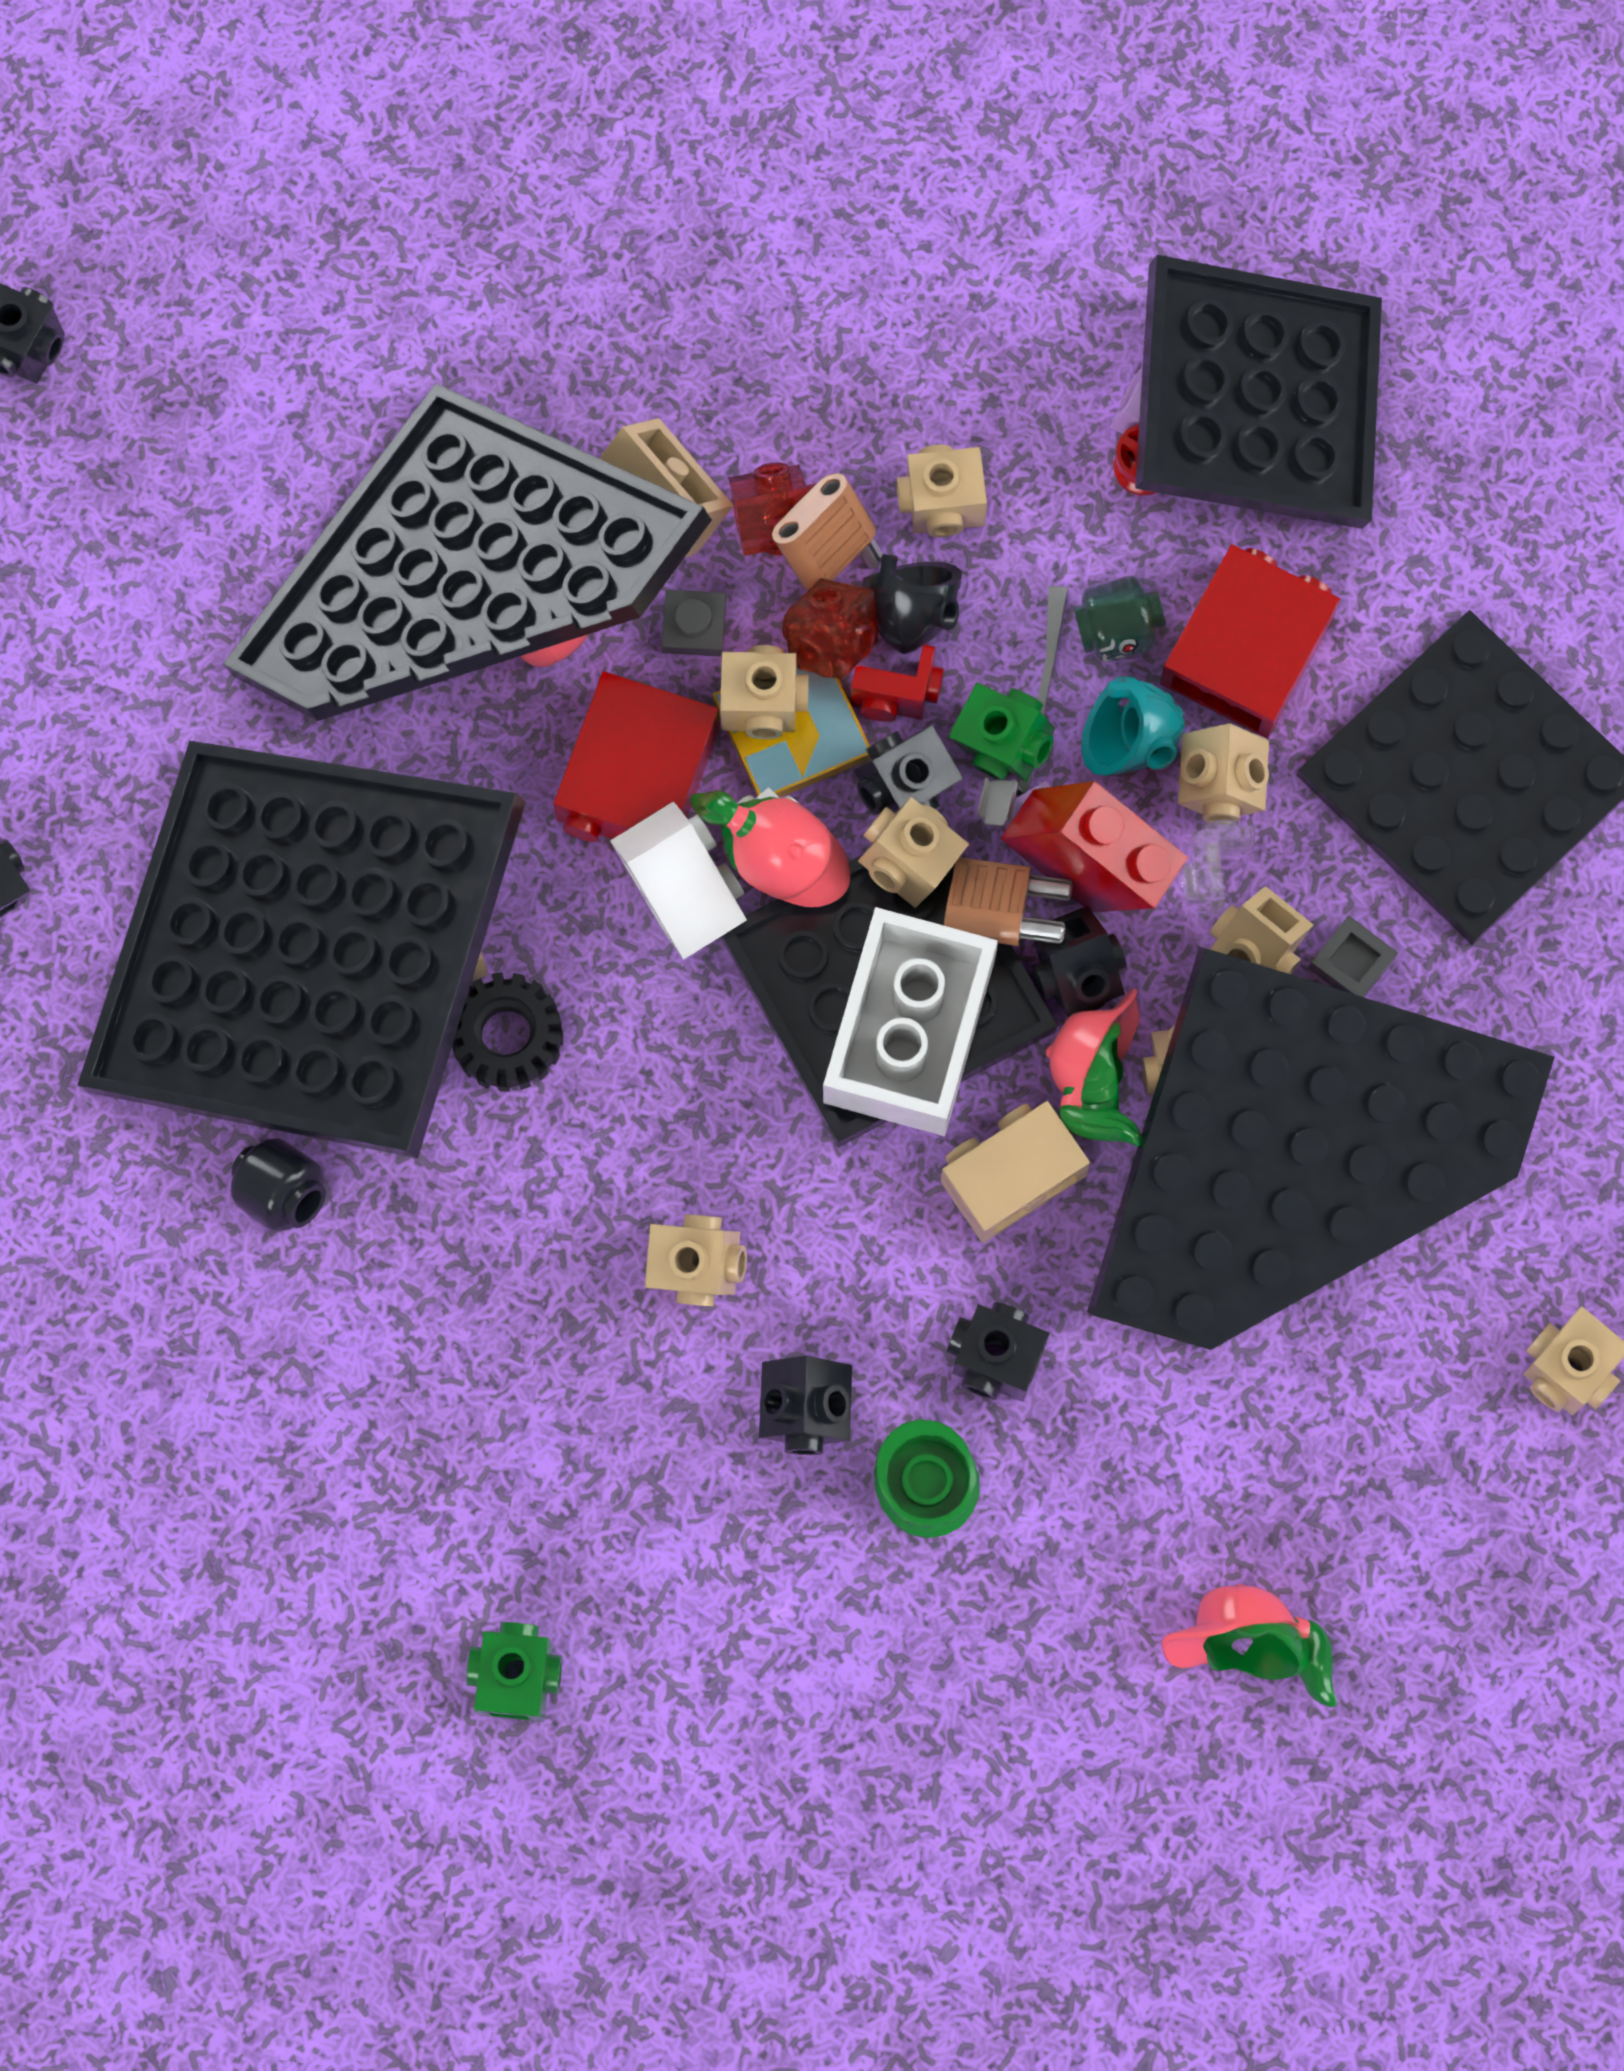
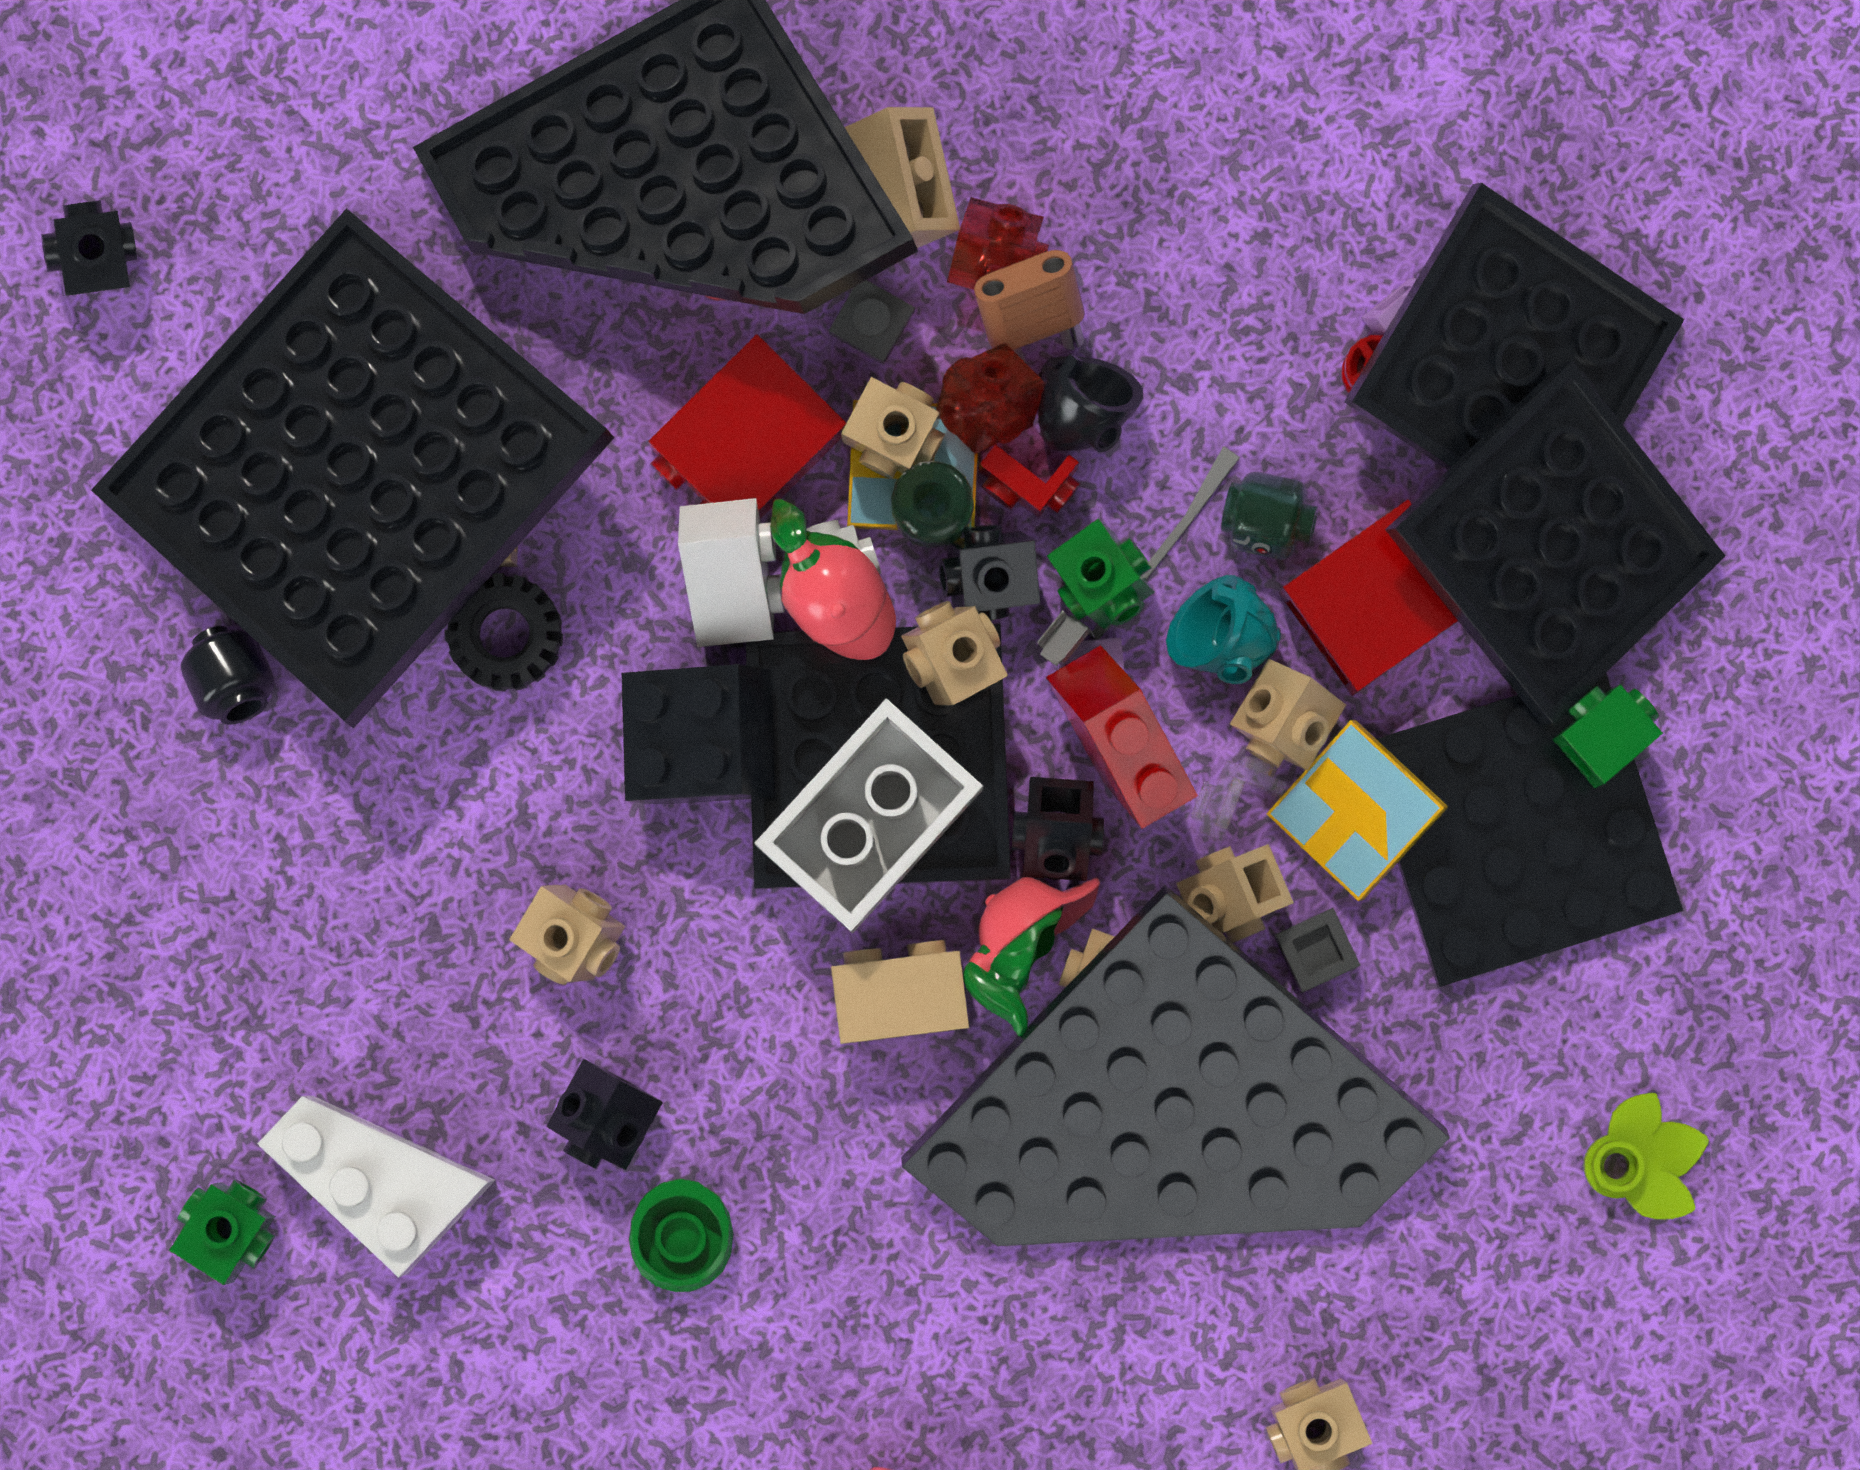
camera: 25 degrees right, 10 degrees up
(628, 1561) = (373, 1181): none -> white wedge
(722, 1031) = (697, 734): none -> black brick
(840, 725) = (929, 481): none -> clear green head
(943, 490) = (1161, 332): tan brick -> none
(992, 1374) = (825, 1160): black brick -> none
(993, 898) = (1004, 736): nougat piece -> none
(1325, 824) = (1357, 810): none -> tile
(1375, 519) = (1556, 543): none -> black plate
(1504, 652) = (1608, 732): none -> green brick

